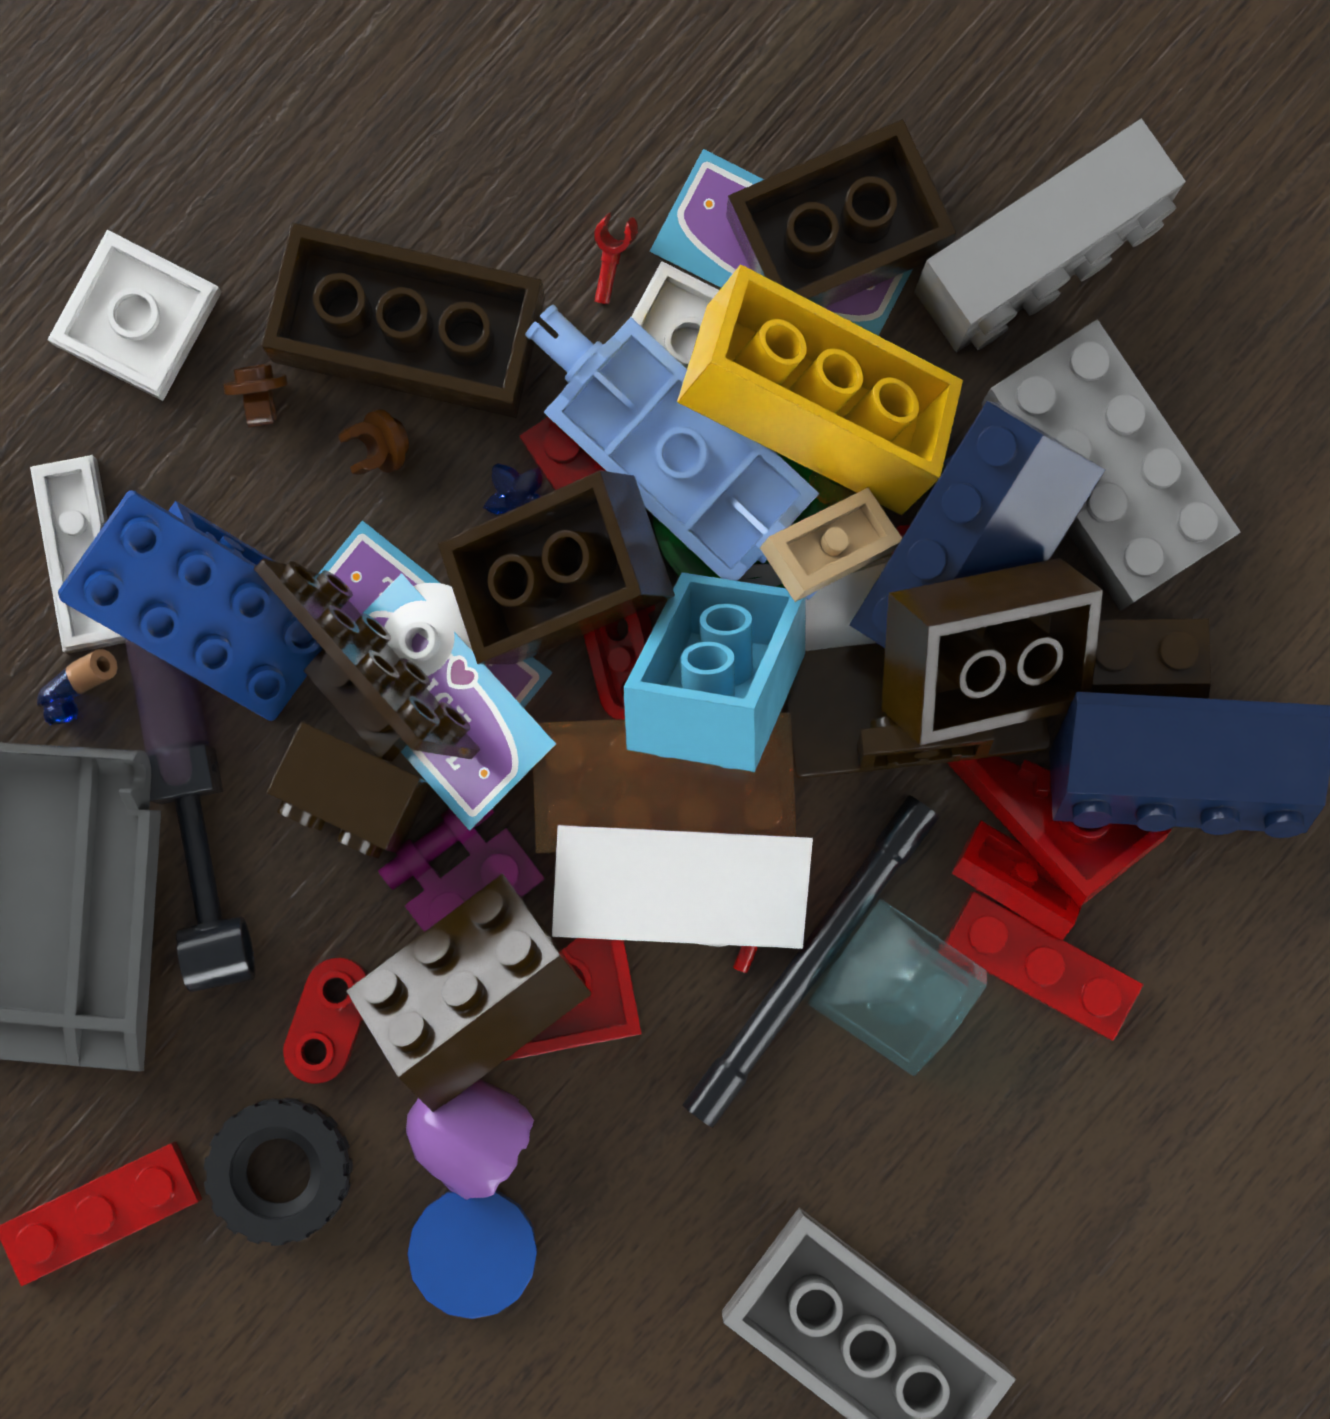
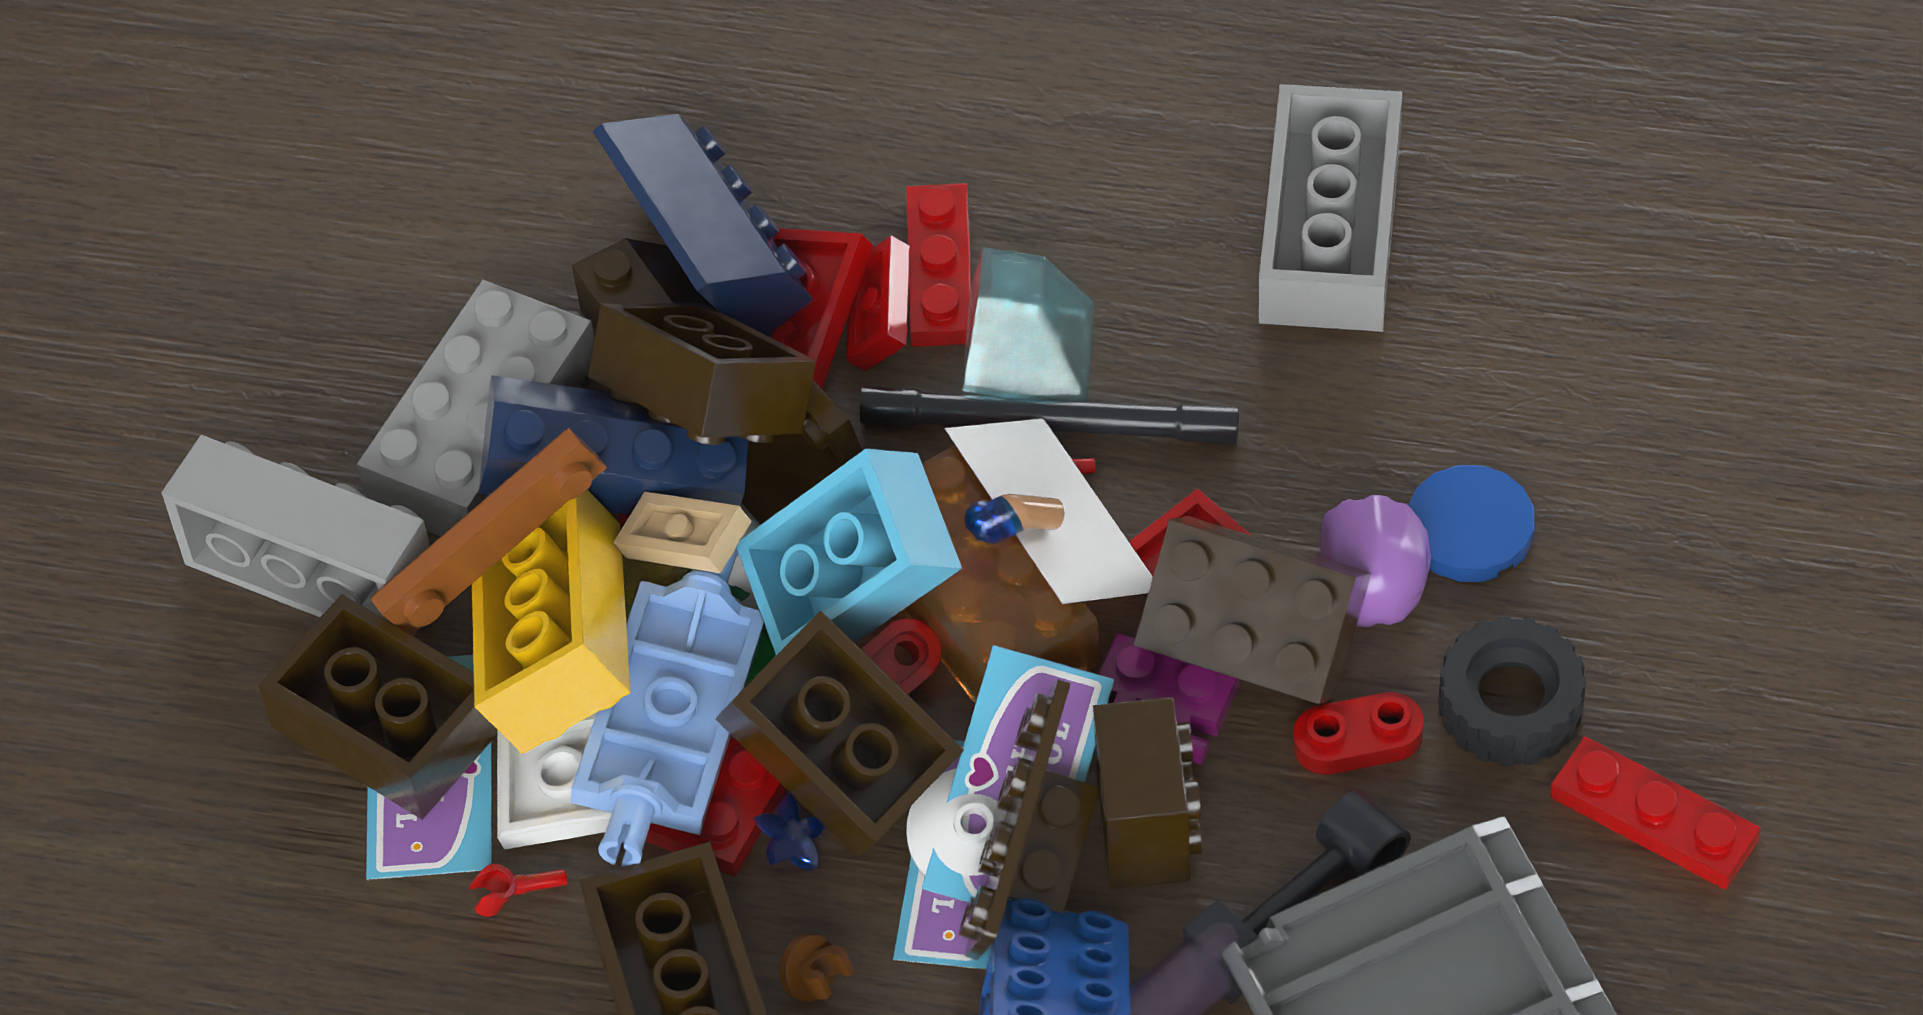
camera: 115 degrees left, 30 degrees down
(664, 835) = (1012, 514): none -> arm
(926, 449) = (488, 532): none -> dark orange plate

